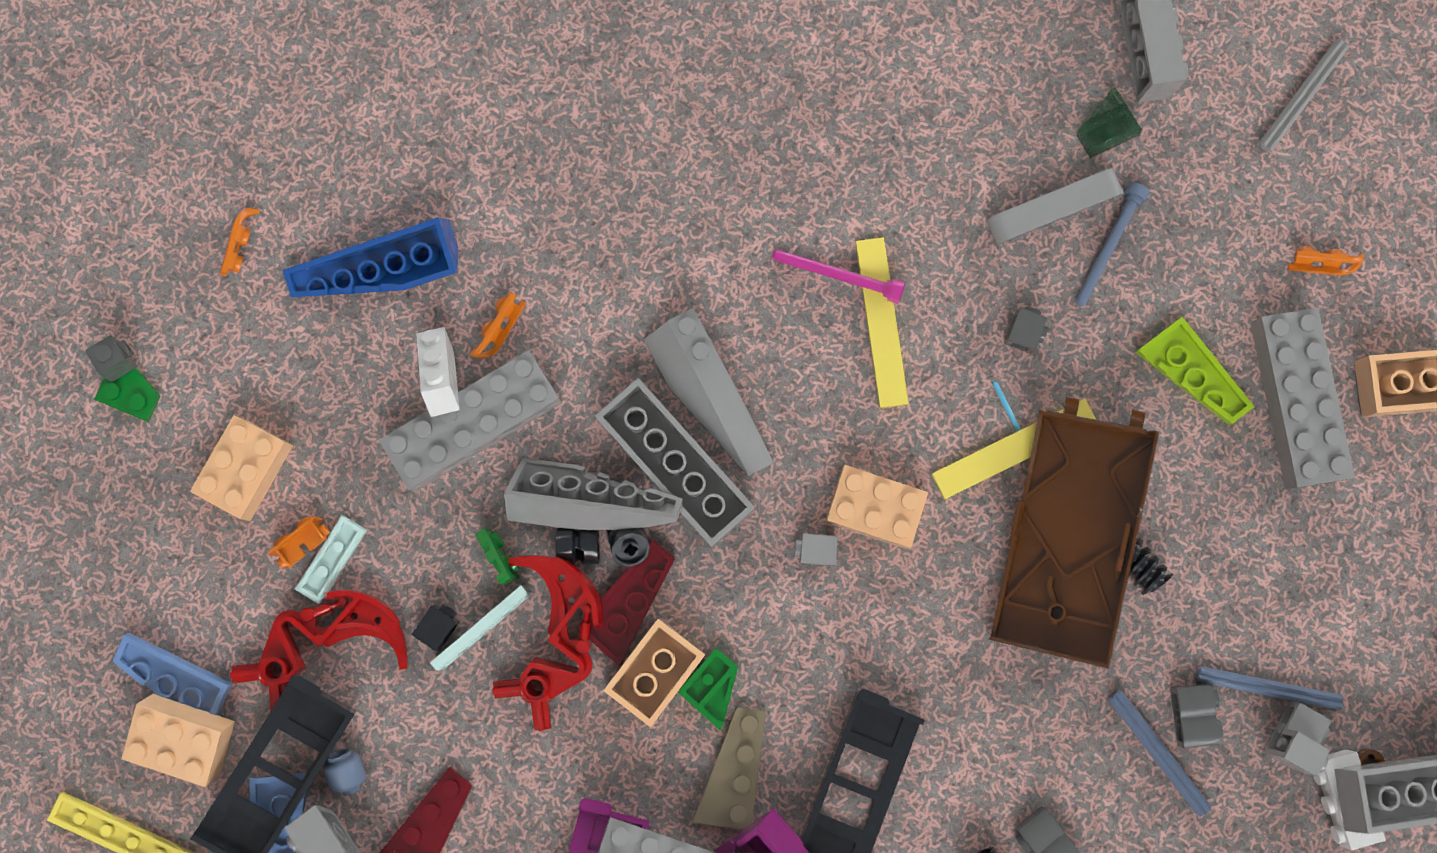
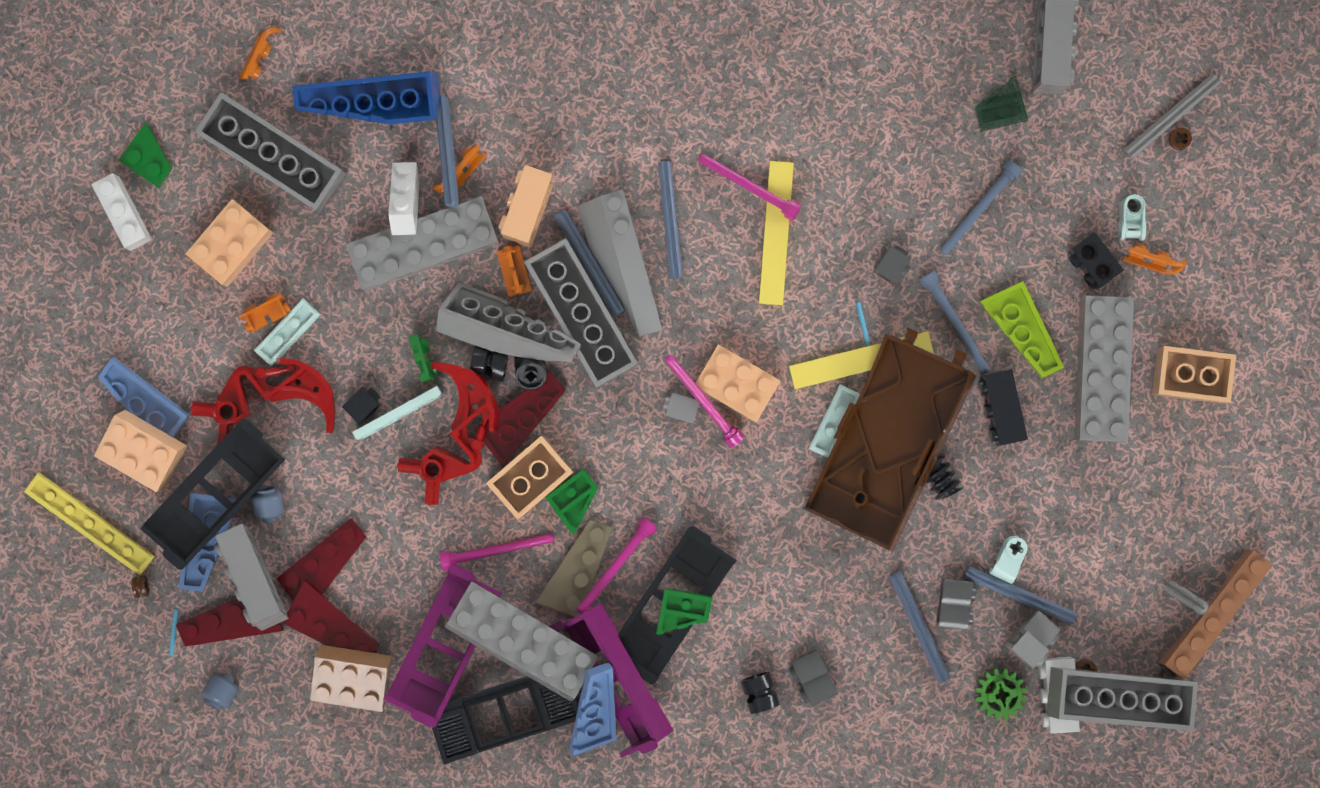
camera: 10 degrees right, 5 degrees up
(107, 458) = (121, 212): none -> white brick
(111, 358) = (140, 130): dark grey brick -> none
(270, 352) = (270, 152): none -> light grey brick
(478, 310) = (447, 153): none -> sand blue axle
(577, 791) = (448, 558): none -> dark pink piece
(584, 350) = (526, 205): none -> light nougat brick
(584, 430) = (514, 270): none -> orange hinge
(672, 403) = (589, 263): none -> sand blue axle
(755, 333) = (670, 219): none -> sand blue axle
(804, 705) = (644, 529): none -> dark pink piece
(872, 793) = (682, 609): none -> green wing
(883, 569) = (732, 435): none -> dark pink piece
(997, 531) = (824, 438): none -> light aqua tile
(1056, 205) = (941, 166): light grey beam -> none
(1075, 341) = (931, 283): none -> sand blue piece
(1195, 469) = (1003, 408): none -> black brick
(1247, 650) = (1009, 564): none -> light aqua piece
(1262, 269) = (1099, 257): none -> black brick
(1289, 221) = (1132, 220): none -> light aqua piece
(1289, 820) = (990, 696): none -> bright green gear
(1328, 118) = (1180, 146): none -> reddish brown bush

